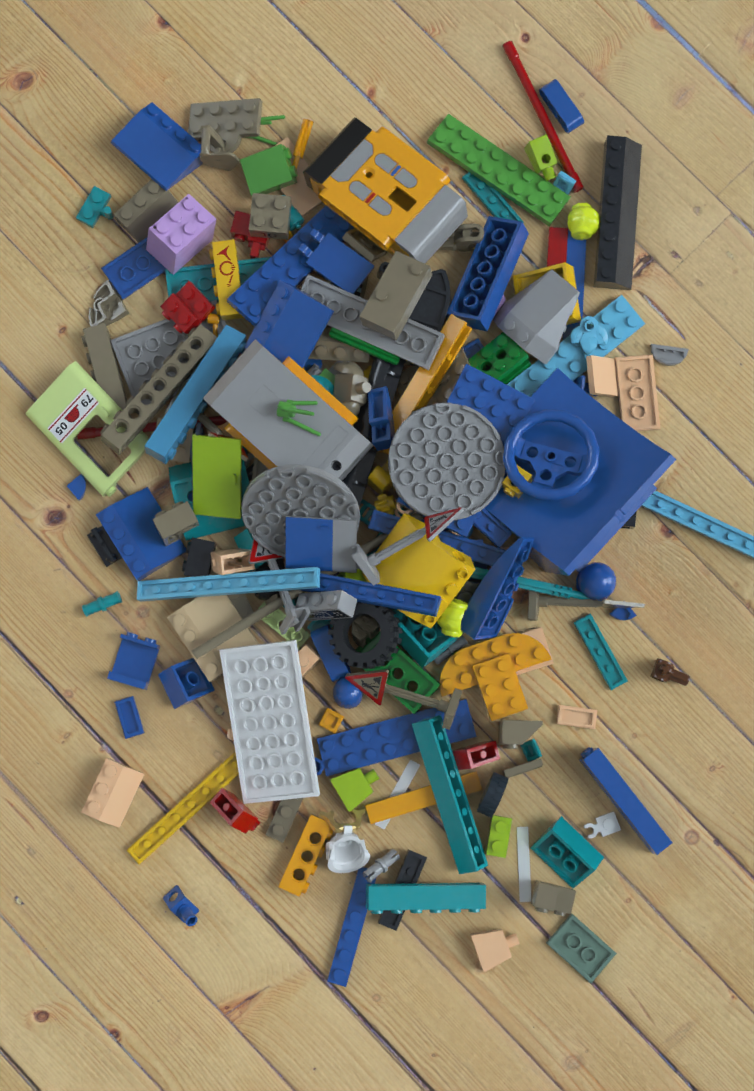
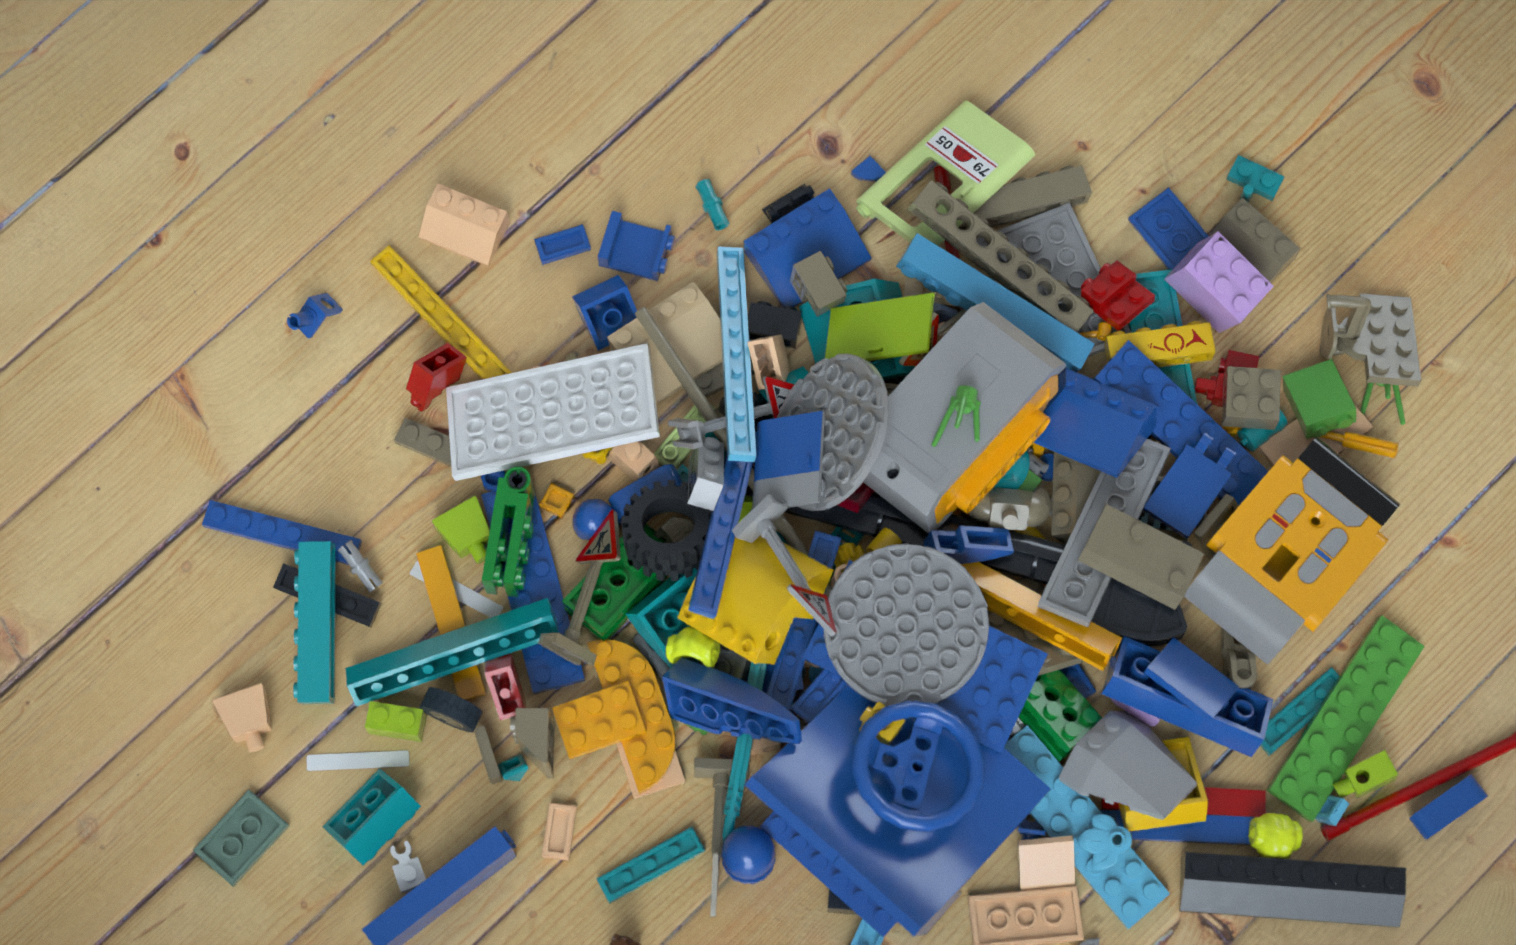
camera: 90 degrees right, 10 degrees down
(107, 306) = (1116, 199): dark tan brick -> none
(159, 146) = (1342, 251): blue slope -> none
(288, 881) = (343, 447): light orange brick -> none
(339, 748) = (512, 501): none -> green hinge
(345, 849) = (381, 517): white helmet -> none
(363, 346) = (1070, 521): green axle -> none
(480, 268) = (1191, 679): none -> blue tile
(552, 898) = (311, 795): dark tan brick -> none
(623, 613) = (703, 897): blue tile -> none

